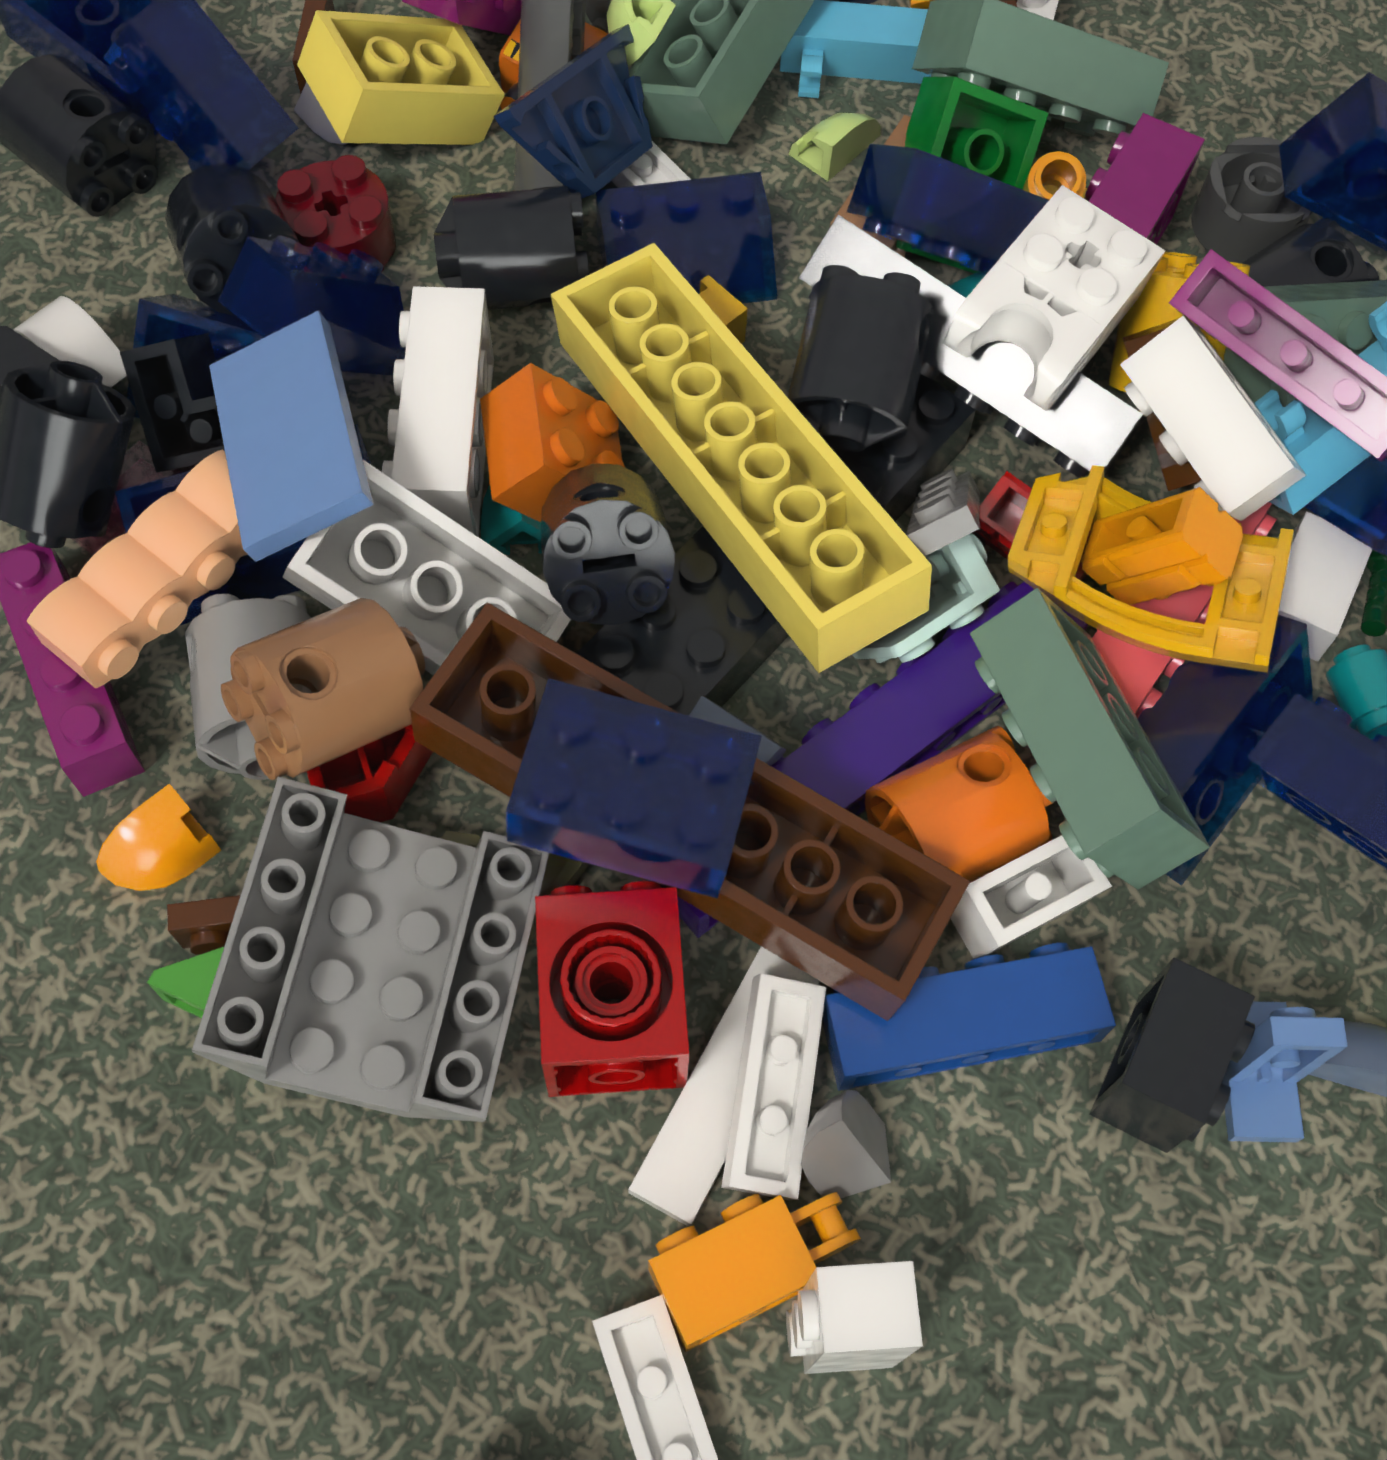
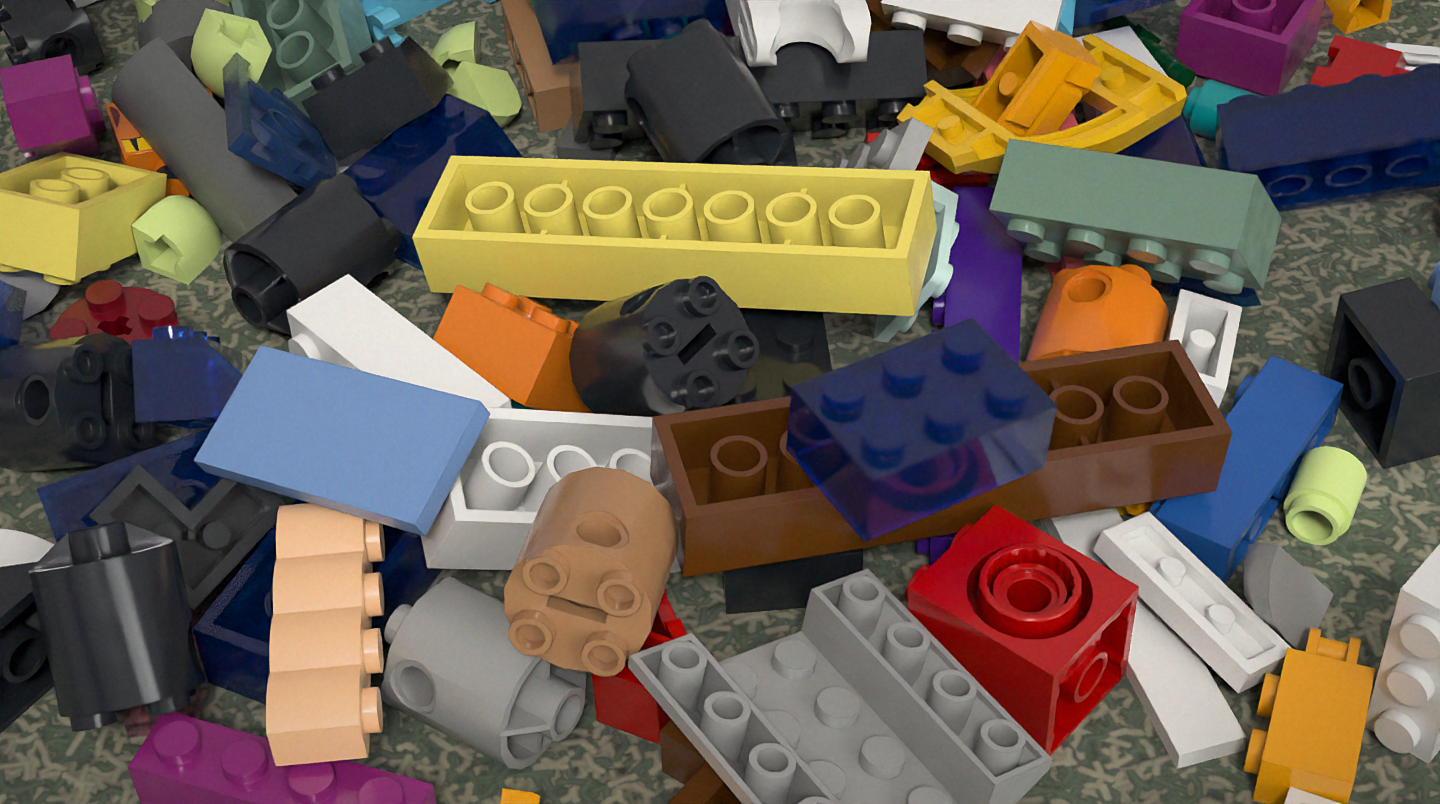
camera: 40 degrees left, 20 degrees down
(476, 153) = (177, 238): none -> yellowish green brick
(694, 139) = (376, 95): none -> black slope
(808, 194) = (487, 89): none -> yellowish green brick
(998, 1095) = (1324, 495): none -> yellowish green brick

